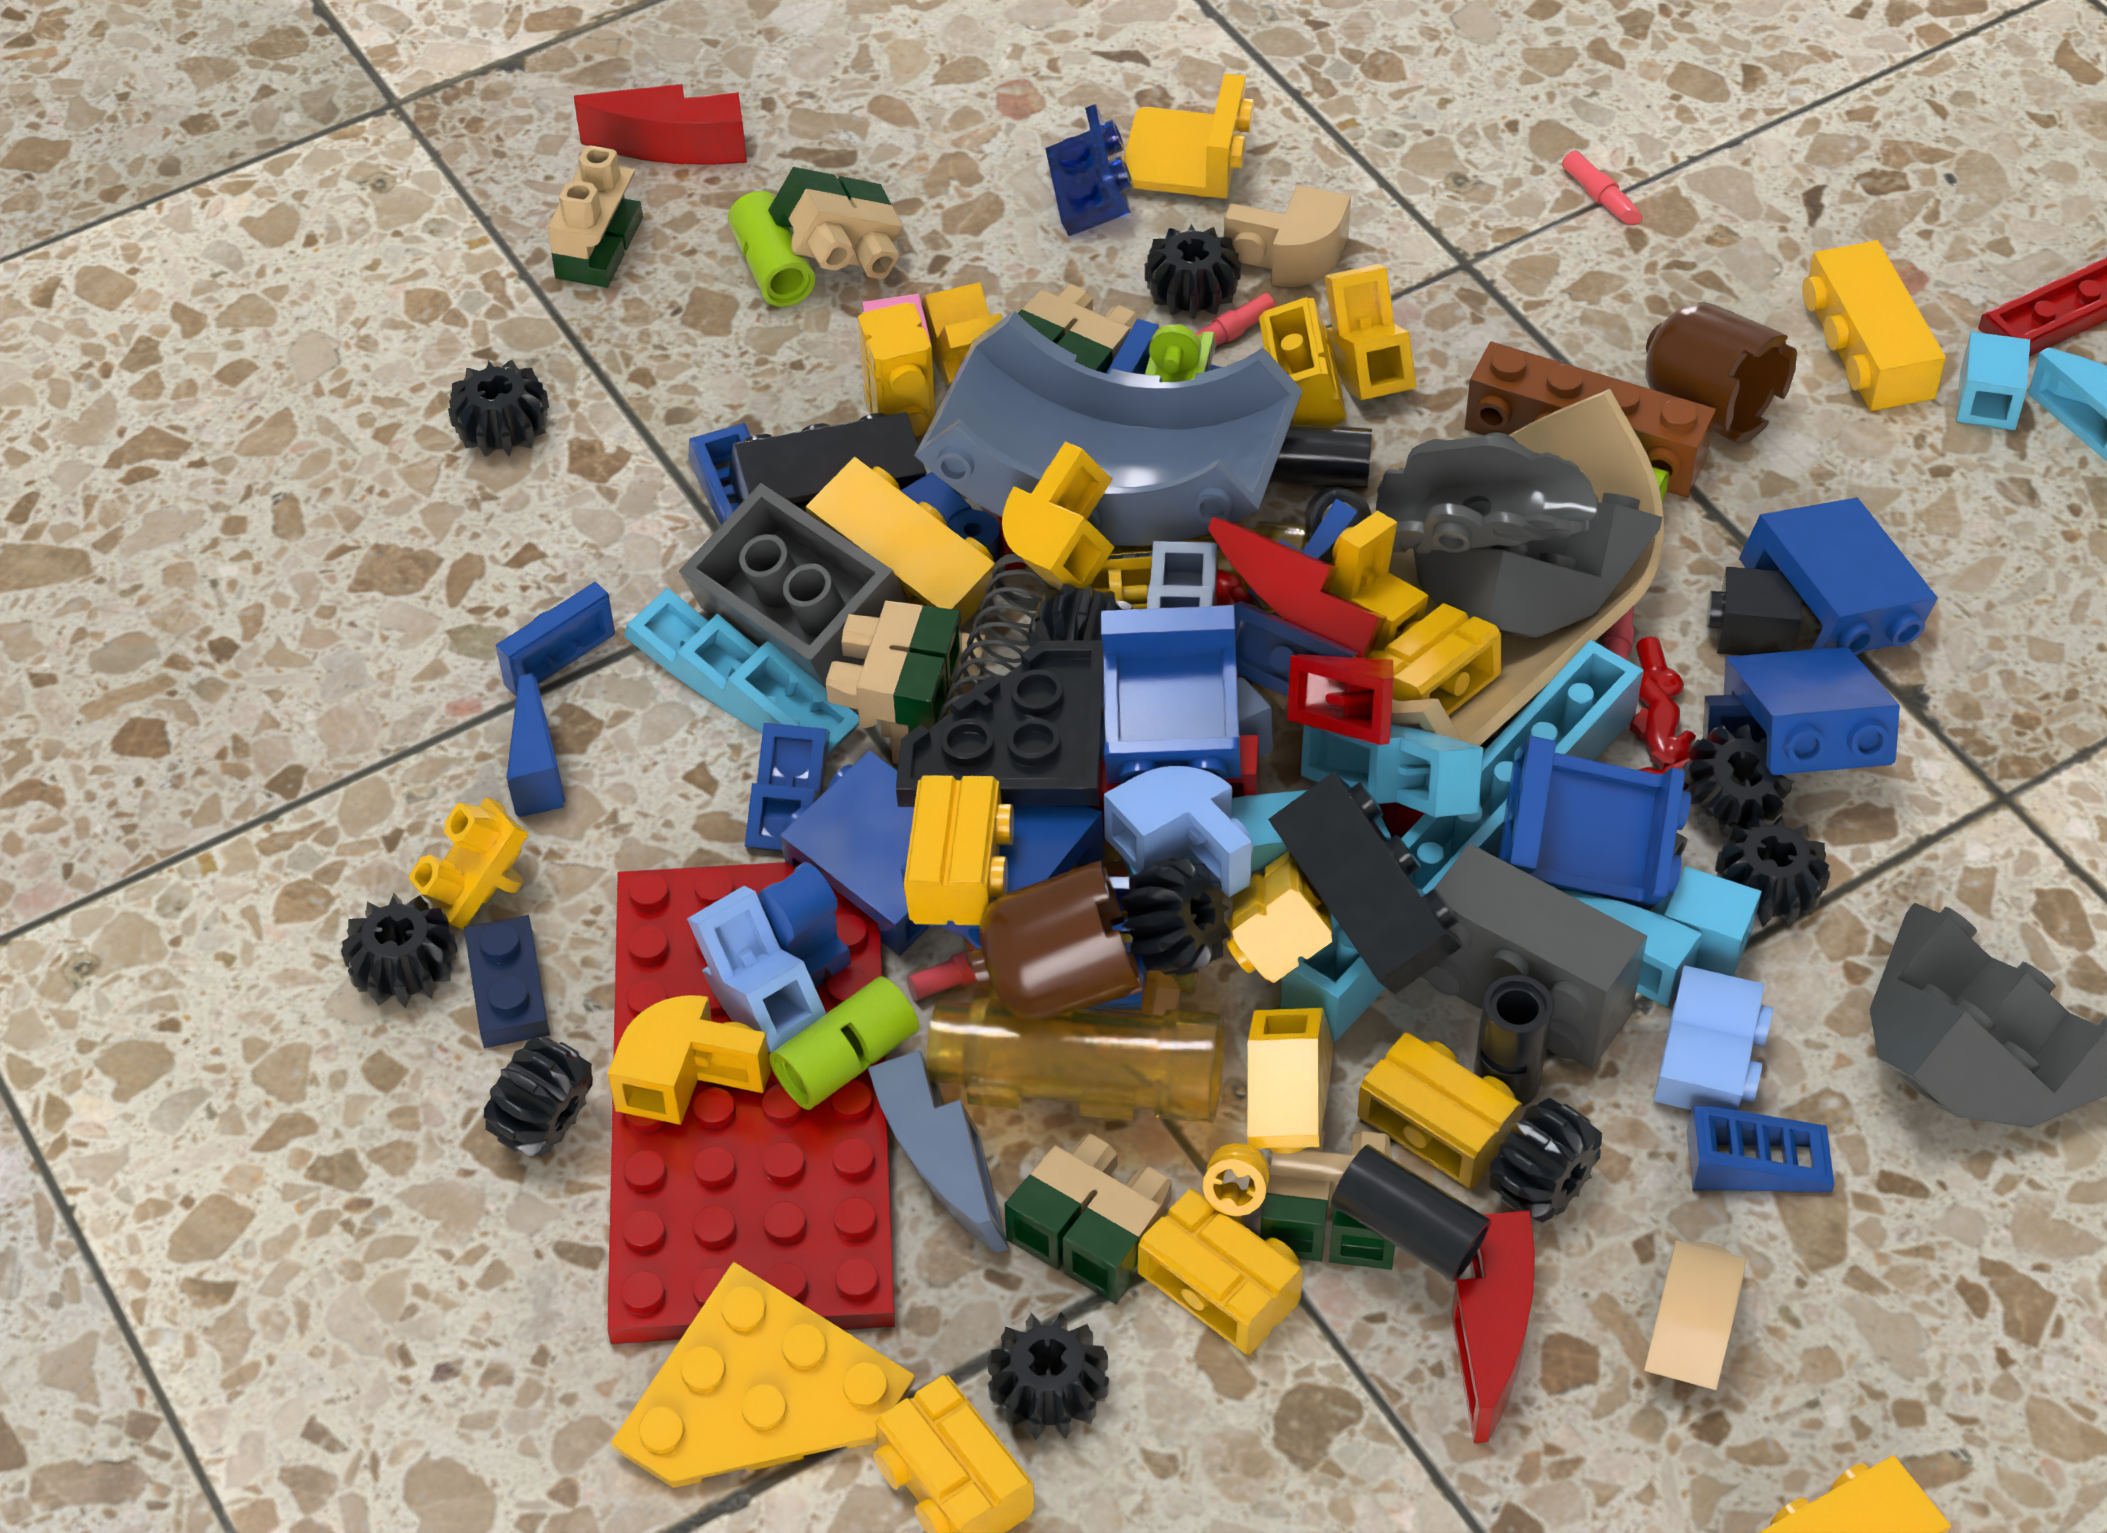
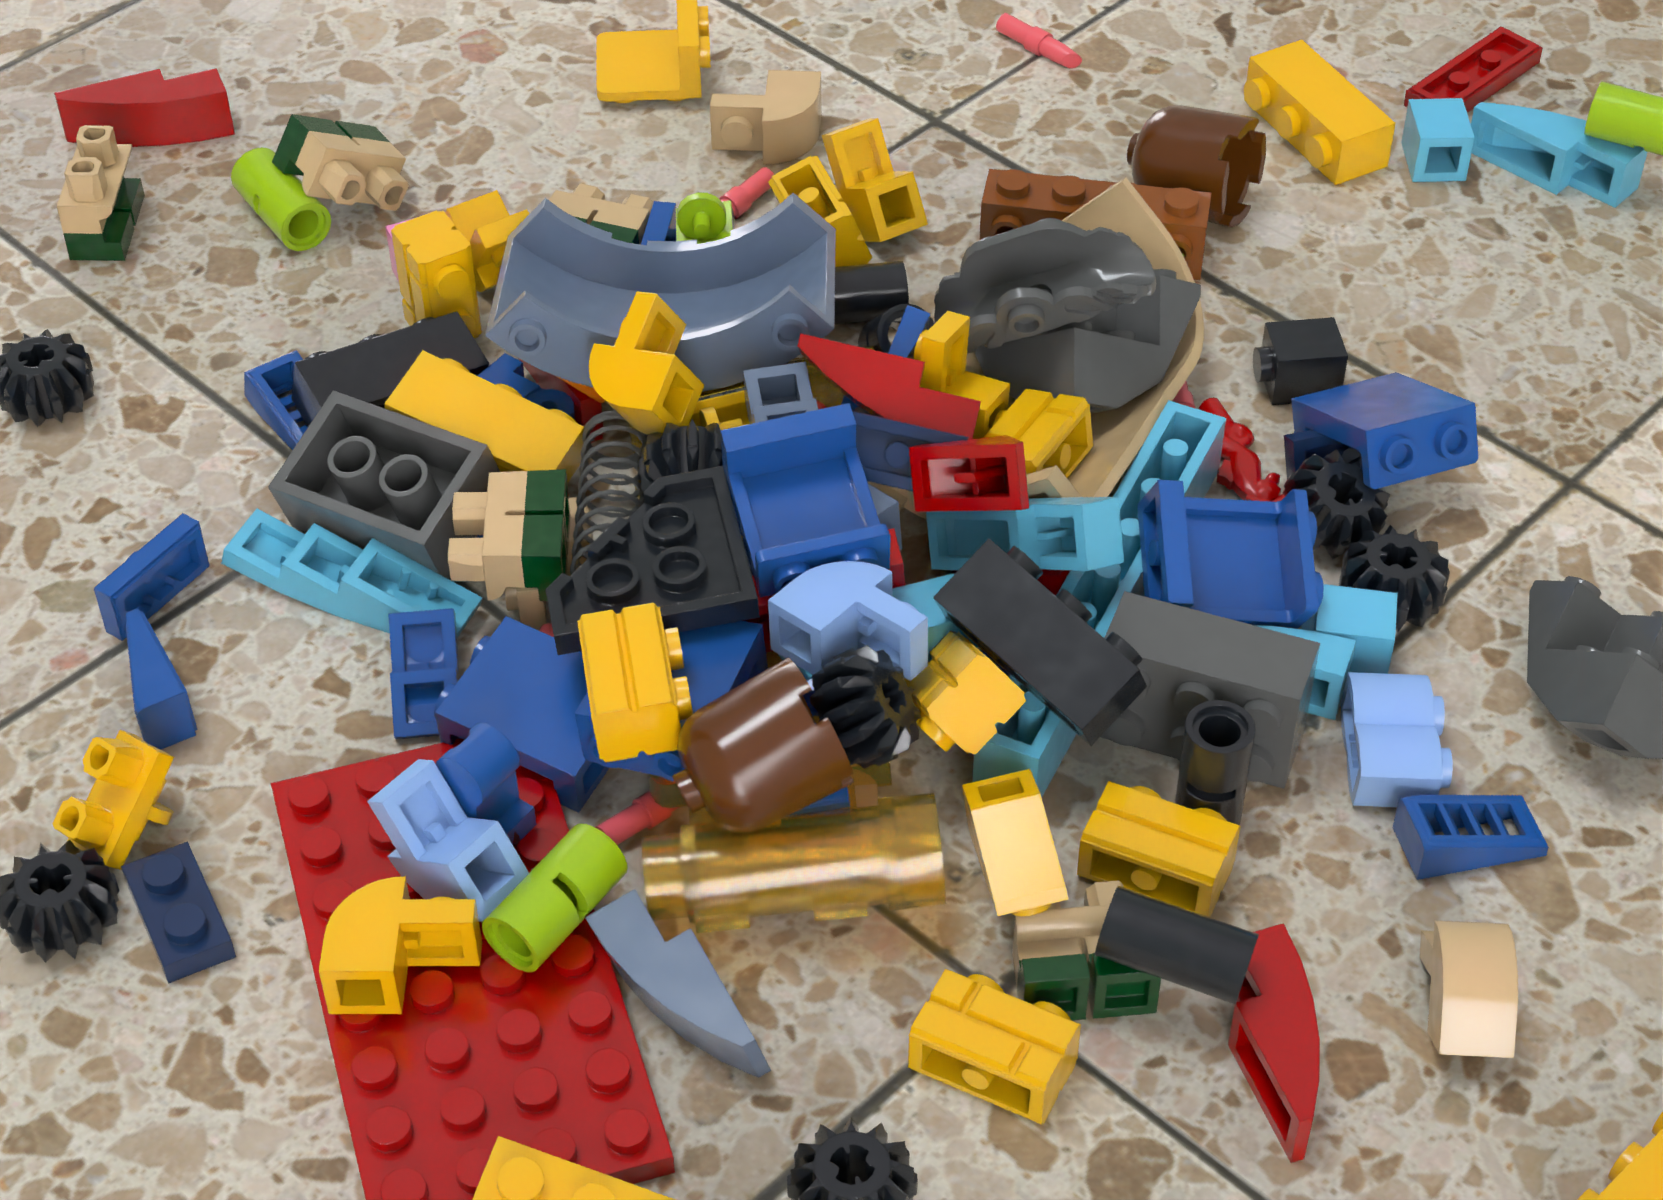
camera: 15 degrees left, 5 degrees down
(538, 1096) = (244, 1014): black gear -> none
(1085, 1218) = (844, 1020): hips -> none
(1090, 176) = (569, 95): clear blue bracket -> none
(1192, 271) = (690, 158): black gear -> none
(1229, 1197) = (985, 968): yellow bush -> none
(1545, 1159) = (1279, 873): black gear -> none
(1844, 573) = (1371, 309): blue panel -> none

